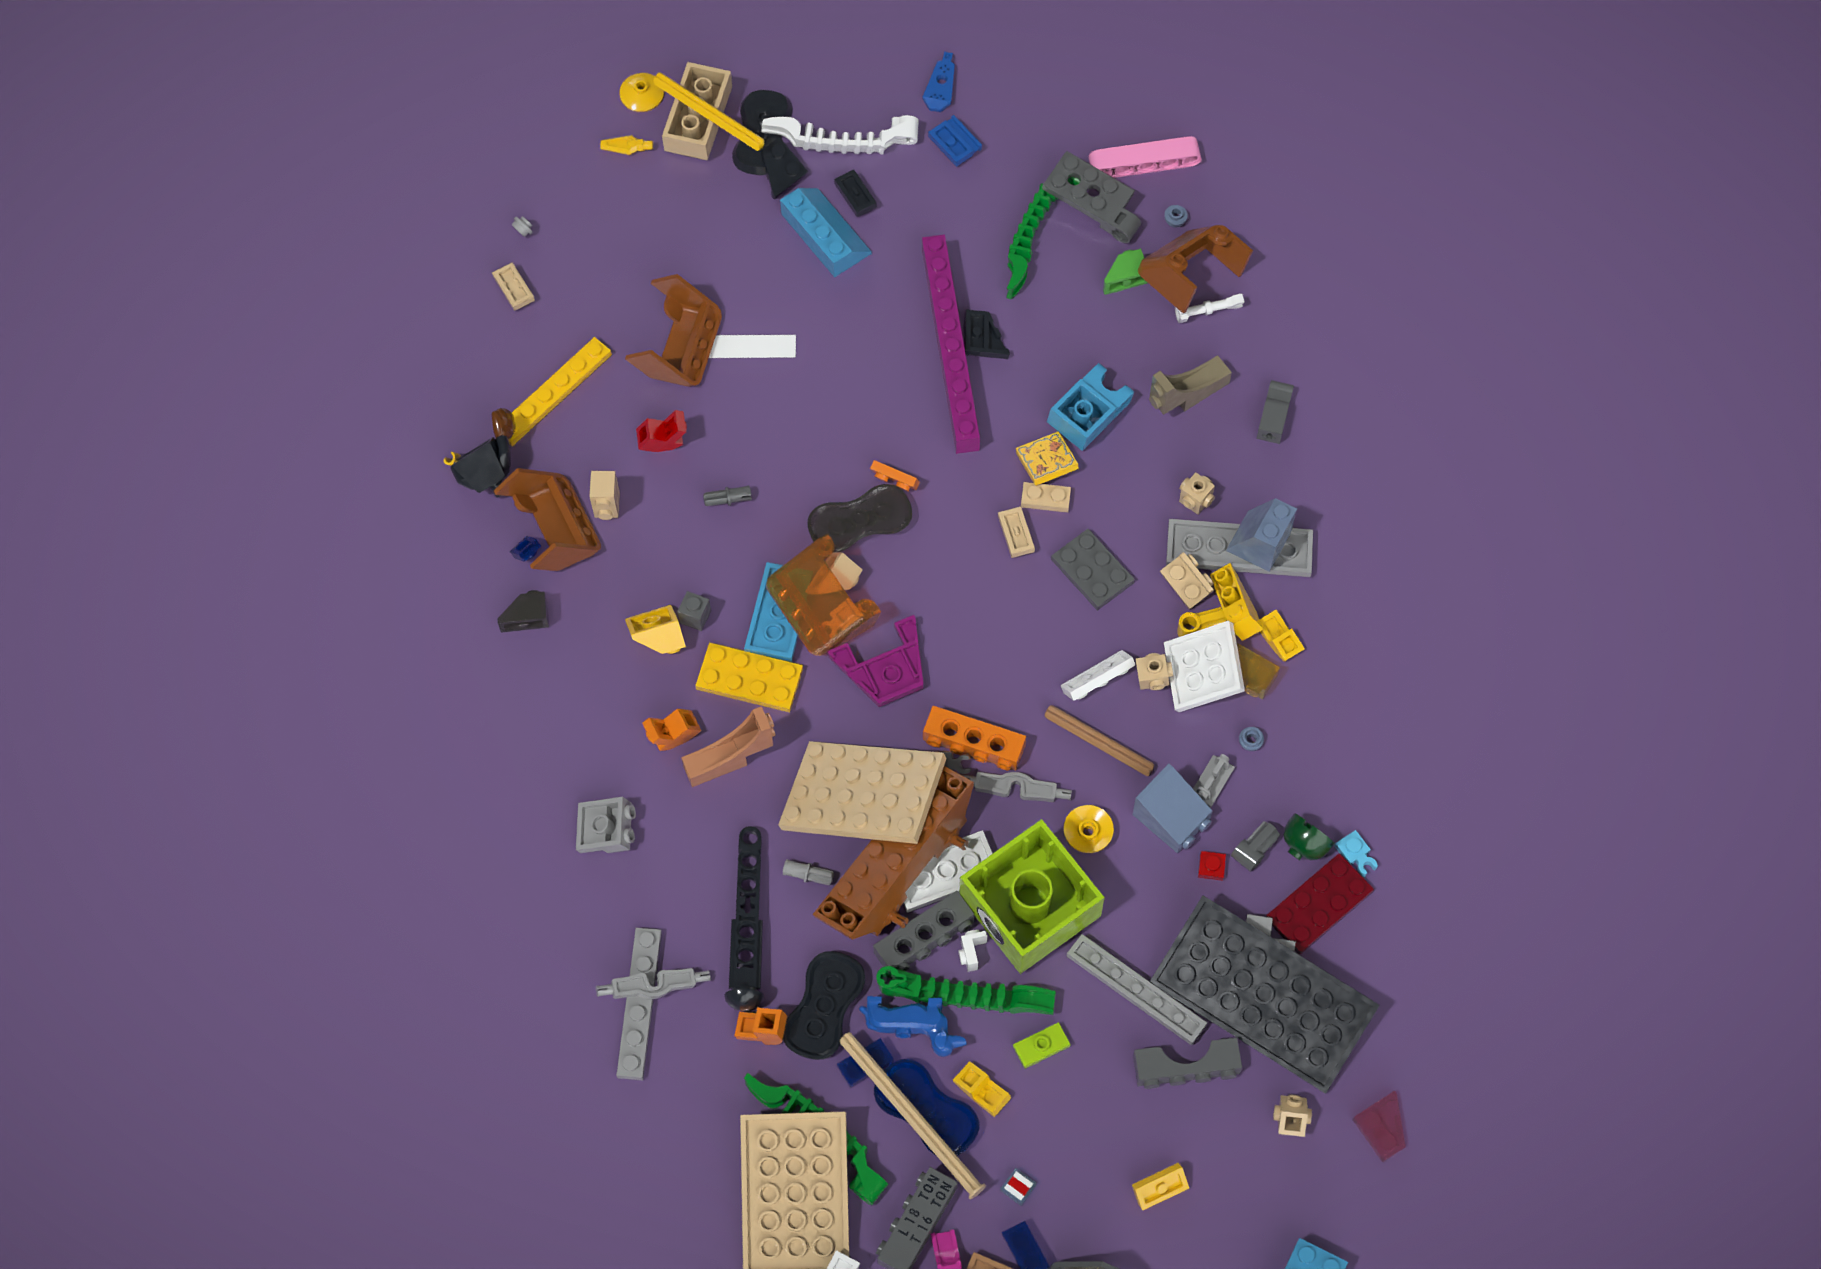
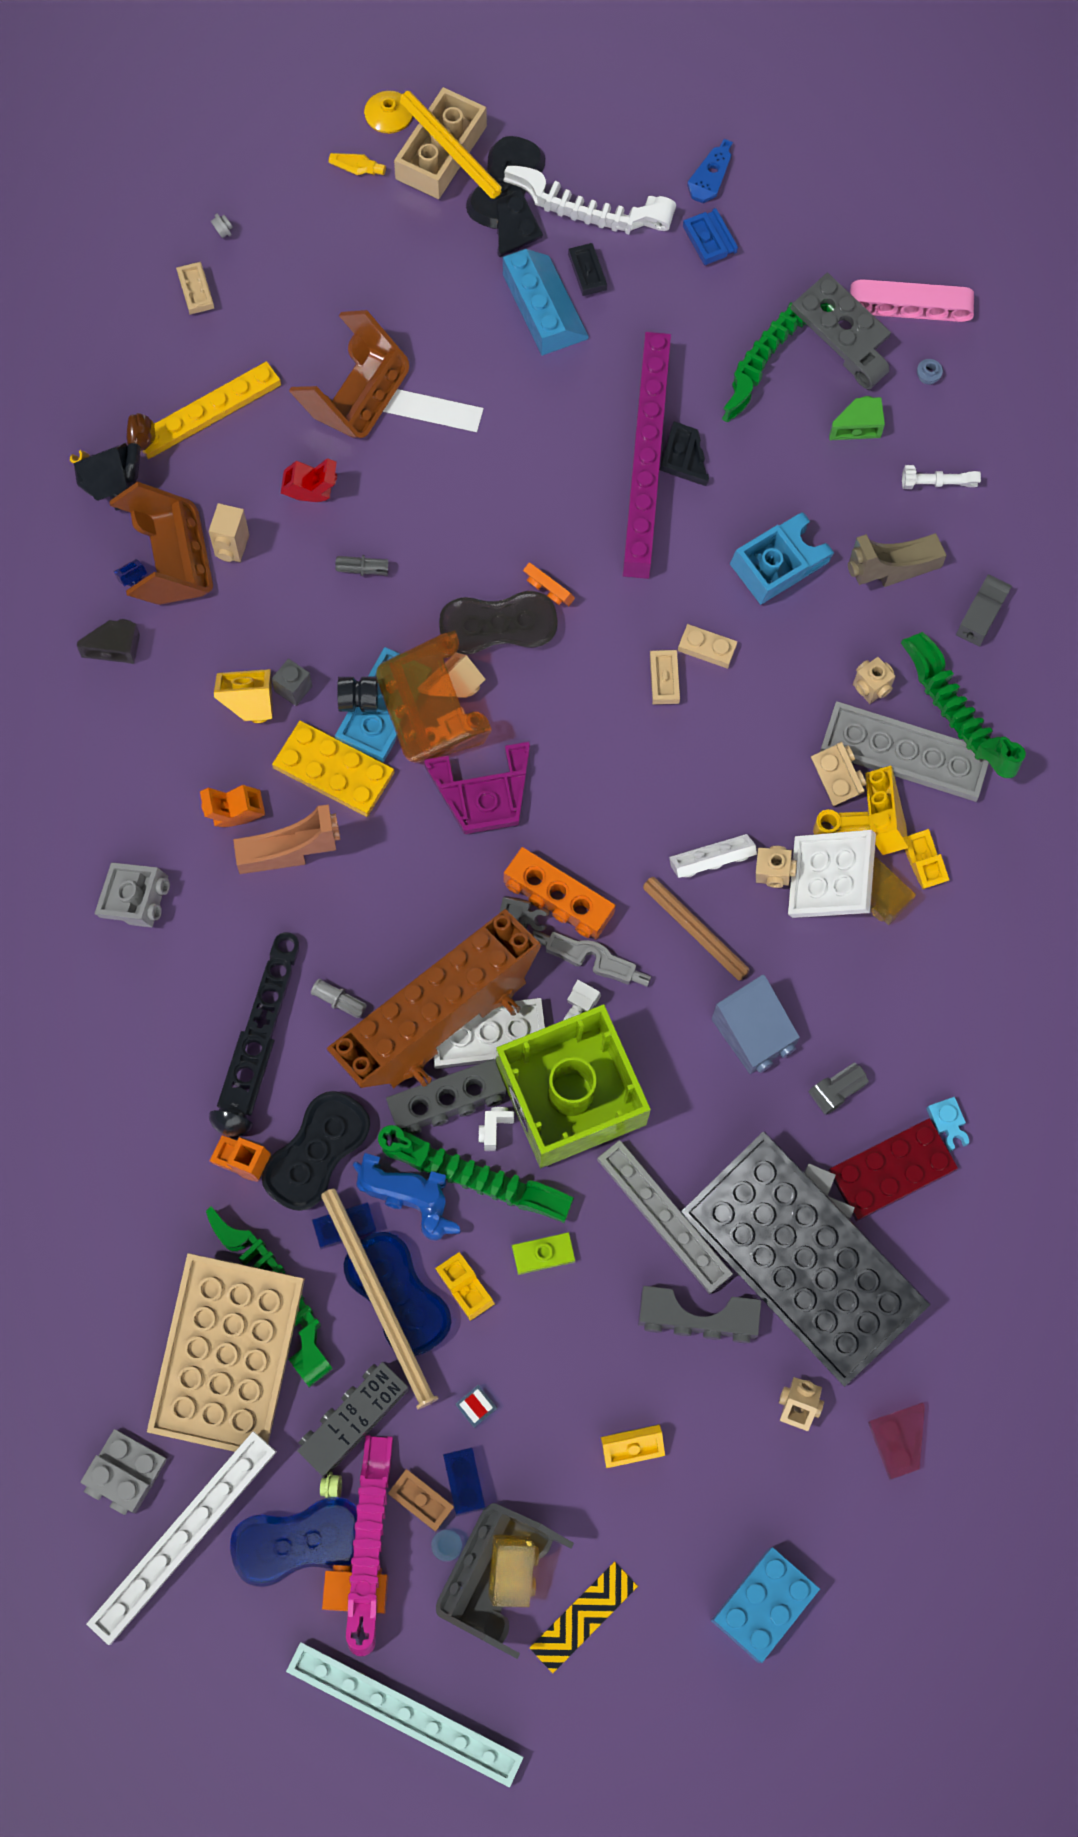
camera: 10 degrees right, 5 degrees up
(638, 1009) = (117, 1099): light grey plate -> none
(639, 984) = (120, 1080): light grey piece -> none
(756, 607) = (357, 694): none -> black wheel
(863, 792) = (419, 925): tan plate -> none
(1018, 822) = (582, 998): none -> white piece
(1047, 458) = (719, 604): yellow tile -> none
(1090, 818) = (659, 1011): yellow dish -> none
(1092, 569) = (738, 737): dark grey plate -> none
(1165, 266) = (902, 423): dark orange windscreen -> none
(1211, 865) = (784, 1098): red plate -> none
(1213, 779) = (810, 1002): light grey hinge -> none
(1242, 470) = (930, 664): none -> green piece
(1251, 732) = (864, 958): sand blue plate -> none
(1263, 533) = (936, 741): sand blue slope -> none
(1305, 839) = (895, 1095): dark green cylinder -> none

